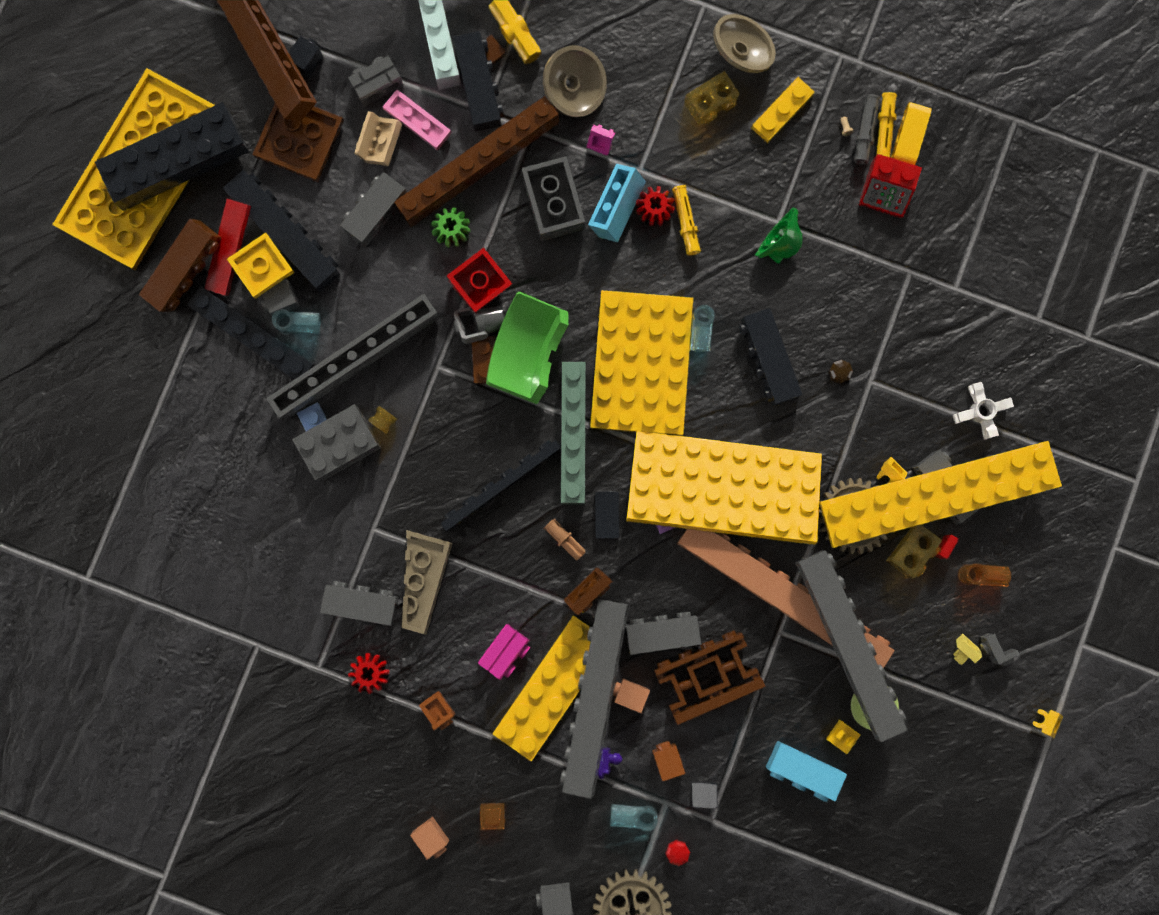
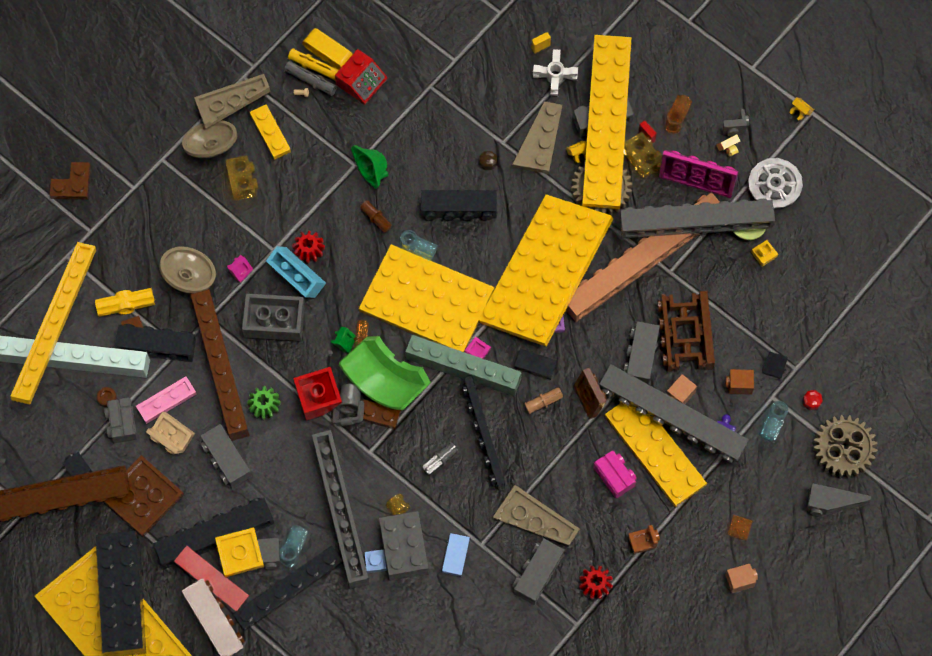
camera: 65 degrees left, 15 degrees down
(350, 504) = (455, 554): none -> light blue tile
(400, 55) = (106, 394): none -> reddish brown tile
(455, 446) = (439, 458): none -> axle
(557, 288) = (344, 339): none -> green tile
(573, 304) = (361, 332): none -> clear orange axle
(600, 442) = (478, 348): none -> dark pink tile
(688, 228) = (328, 228): yellow pin -> none
(721, 268) = (376, 216): none -> reddish brown axle
(801, 45) = (229, 99): none -> dark tan wing
(805, 772) = (781, 286): medium azure brick -> none
(884, 424) = (539, 144): none -> dark tan wing
(915, 627) = (698, 173): none -> dark pink slope
(938, 722) = (775, 181): none -> flat silver piece
(1016, 380) = (541, 42): none -> yellow tile

